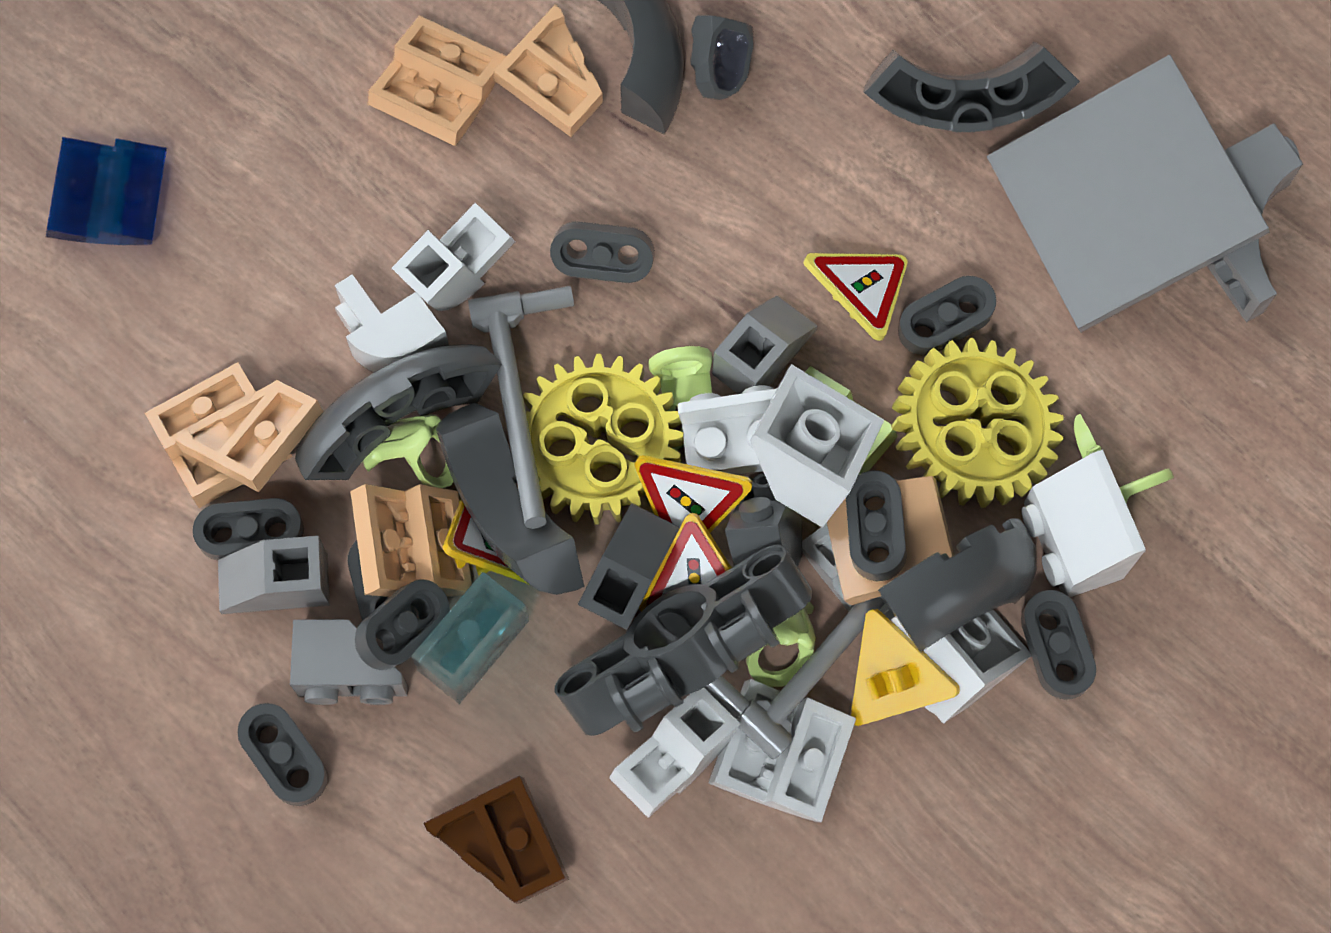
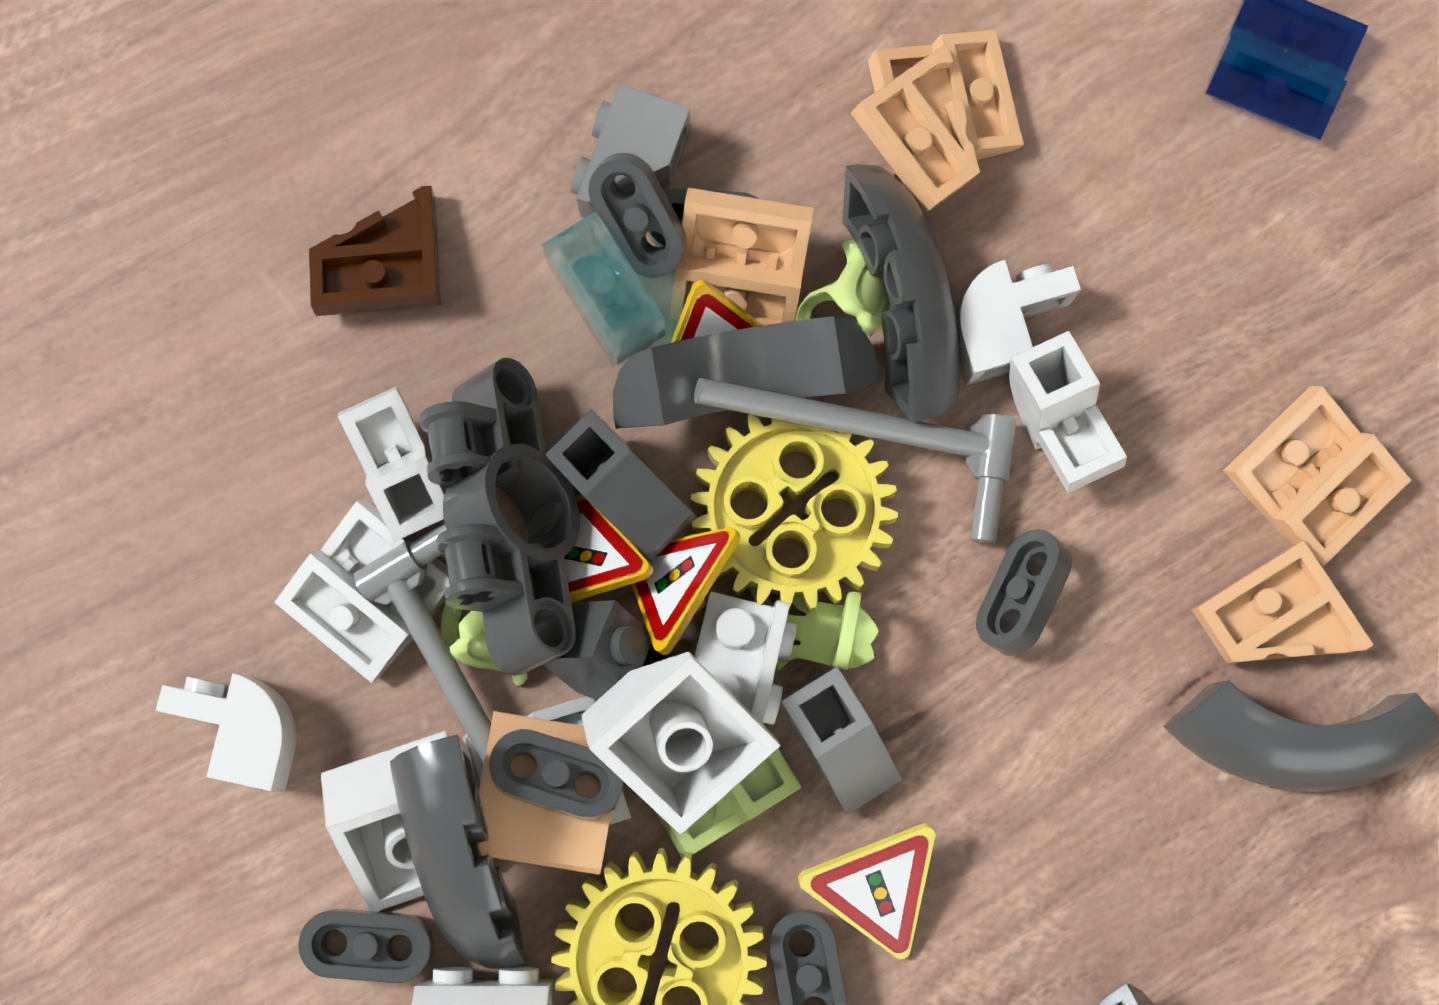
camera: 110 degrees right, 10 degrees up
(248, 522) = (820, 102): dark grey plate -> none
(274, 576) = (750, 110): light grey slope -> none
(283, 756) = (555, 60): dark grey plate -> none
(720, 55) = (1241, 826): dark grey rock -> none
(894, 674) = (382, 729): yellow piece -> none
(933, 792) = (254, 729): none -> white brick

